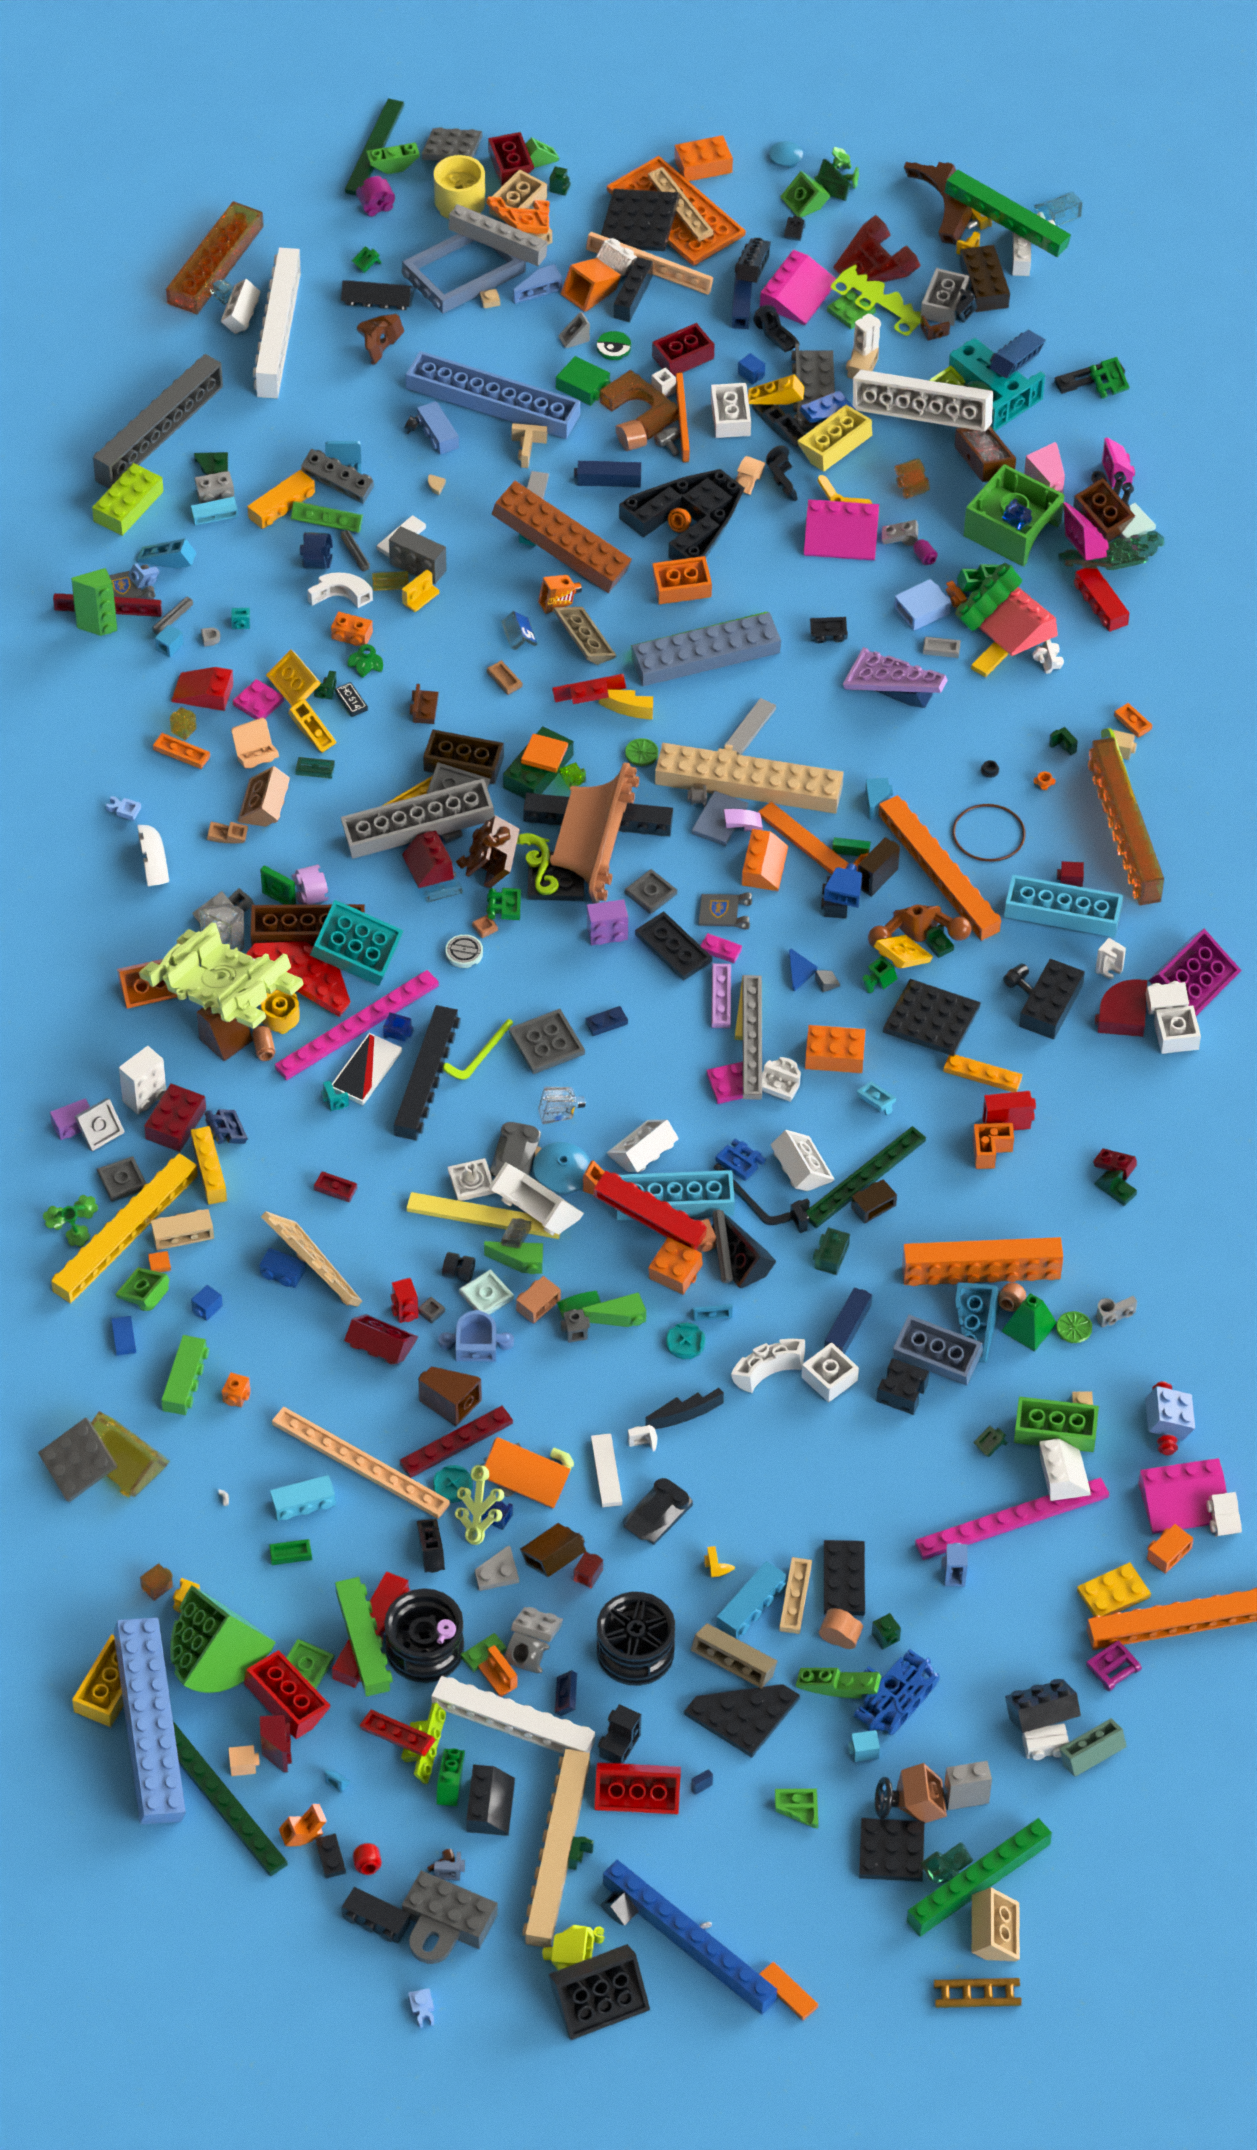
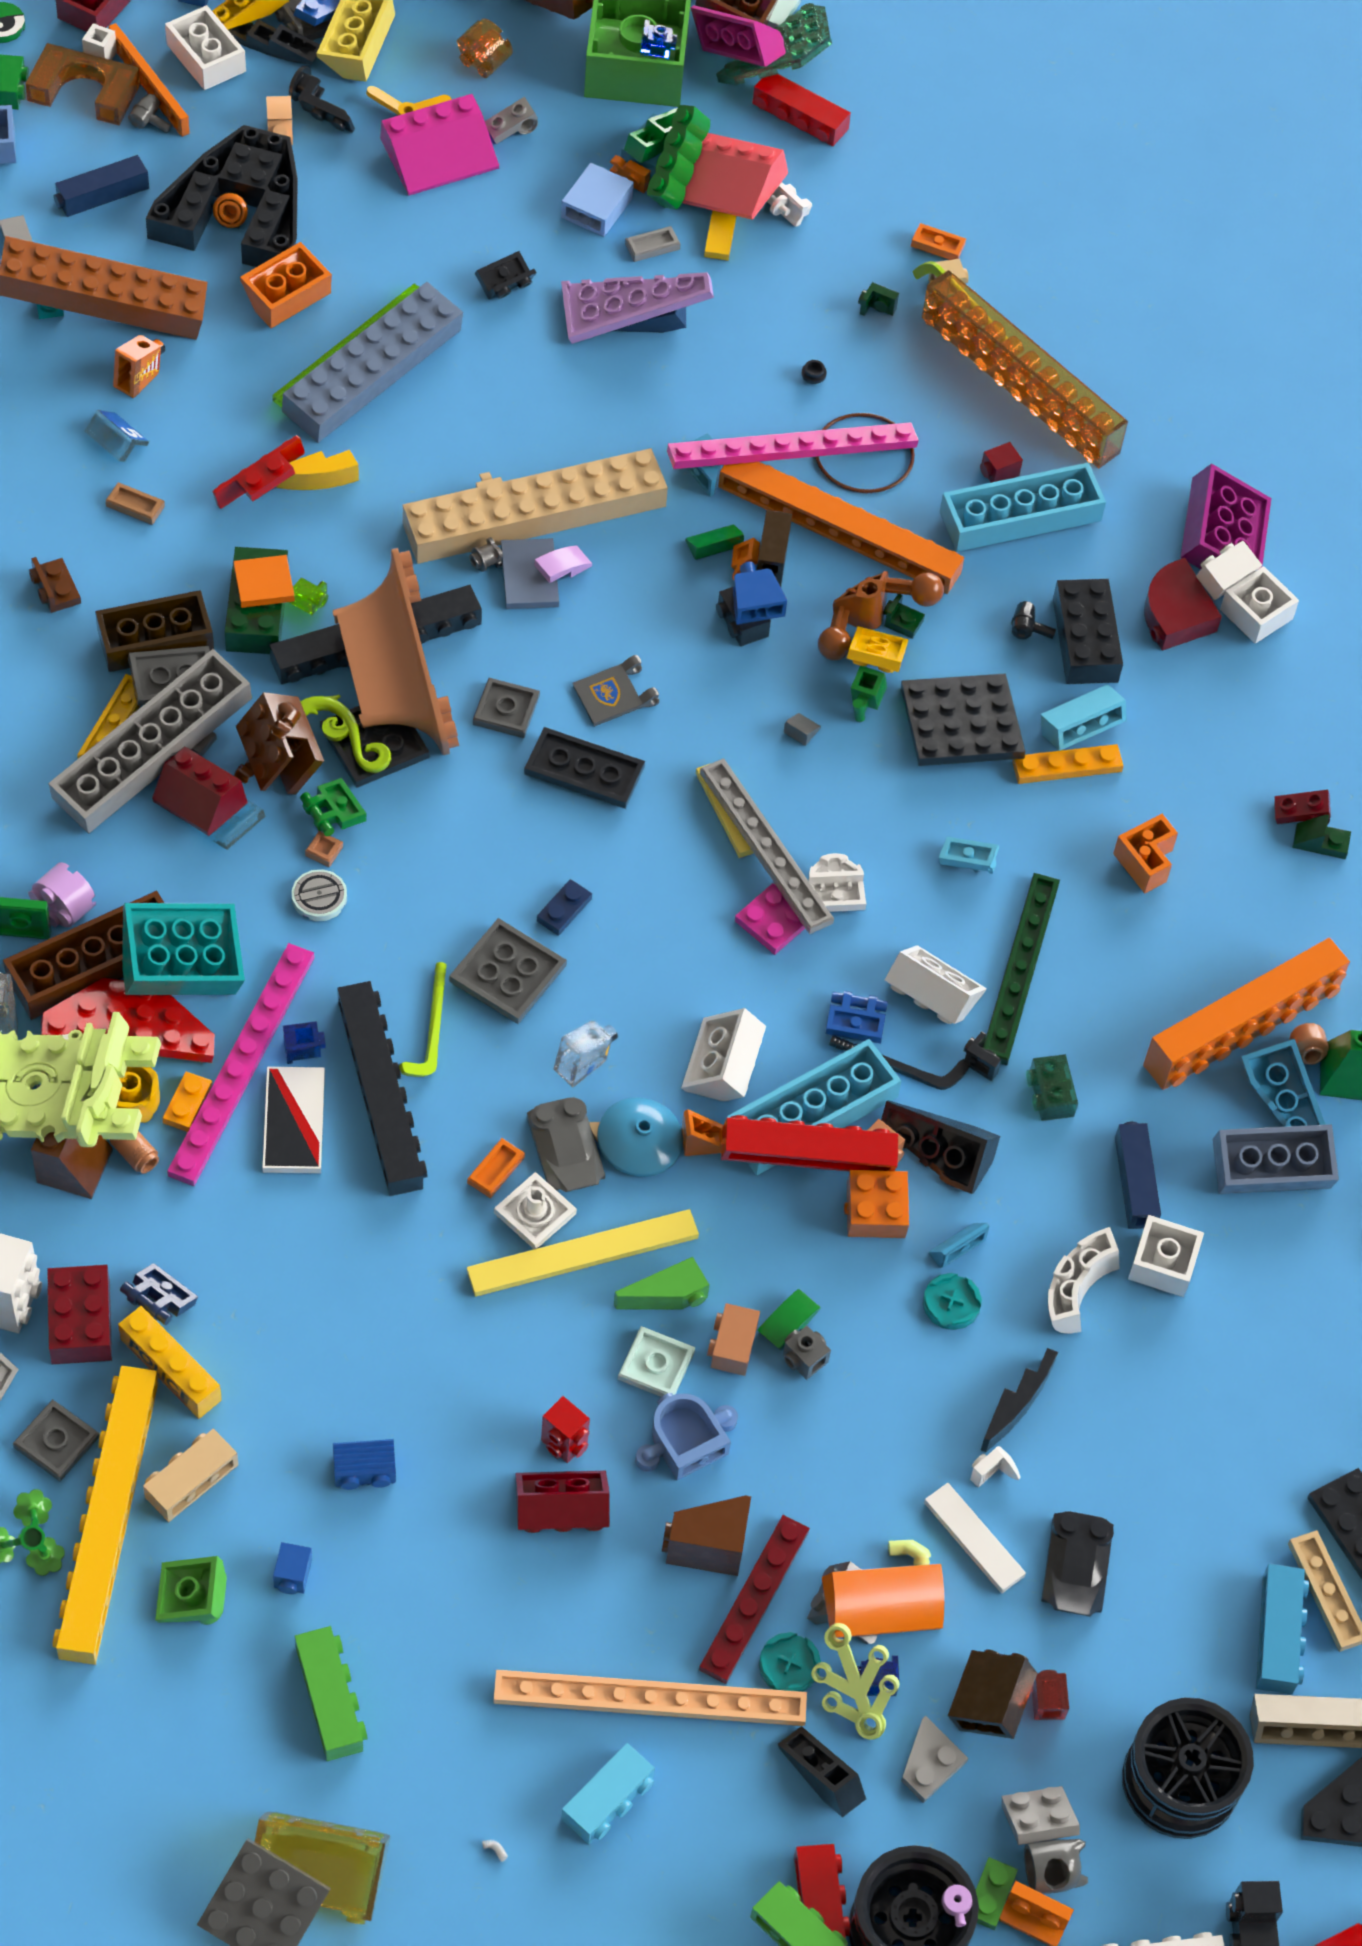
camera: 35 degrees left, 5 degrees up
(123, 1335) = (203, 1675): blue tile -> none
(159, 1261) = (186, 1539): orange tile -> none
(236, 1390) = (415, 1679): orange brick -> none
(290, 1552) = (638, 1883): green tile -> none
(310, 1253) = (394, 1426): tan wing -> none
(311, 1031) = (187, 1101): none -> light orange plate
(334, 1101) = (273, 1182): teal bracket -> none
(335, 1186) = (361, 1308): dark red plate -> none
(431, 1310) = (601, 1422): dark grey tile -> none
(458, 1267) = (590, 1344): black wheel -> none
(466, 1147) = (496, 1168): none -> orange tile
(516, 1233) = (649, 1259): clear smoke plate -> none
(535, 1199) = (648, 1201): white windscreen -> none
(566, 1693) = (1140, 1895): dark blue plate -> none
(585, 634) = (205, 403): dark tan slope -> none
(607, 922) = (487, 773): medium lavender brick -> none
(618, 1312) = (849, 1302): bright green slope -> none
(631, 435) = (99, 125): nougat piece -> none
(641, 752) = (374, 528): bright green wheel -> none
(711, 1561) = (1197, 1600): yellow plate -> none
(721, 948) = (644, 743): dark pink plate -> none
(721, 996) = (685, 807): lavender tile -> none
(722, 1246) = (917, 1147): dark grey axle -> none
(751, 725) = (489, 437): light grey tile -> none
(764, 861) = (622, 606): orange slope -> none
(800, 969) = (759, 727): blue tile -> none
(802, 838) = (652, 557): orange tile -> none
(835, 1049) = (876, 814): orange brick -> none
(873, 1201) = (1059, 995): dark brown brick -> none
(902, 1386) = (1263, 1229): black piece -> none
(925, 552) = (556, 133): magenta brick -> none
(938, 807) = (792, 445): none -> dark pink plate
(1009, 1108) = (1141, 799): red brick -> none
(1010, 1048) = (1083, 717): none -> medium azure brick
(1044, 780) = (887, 359): orange plate -> none
(1110, 957) = (1124, 549): white hinge -> none

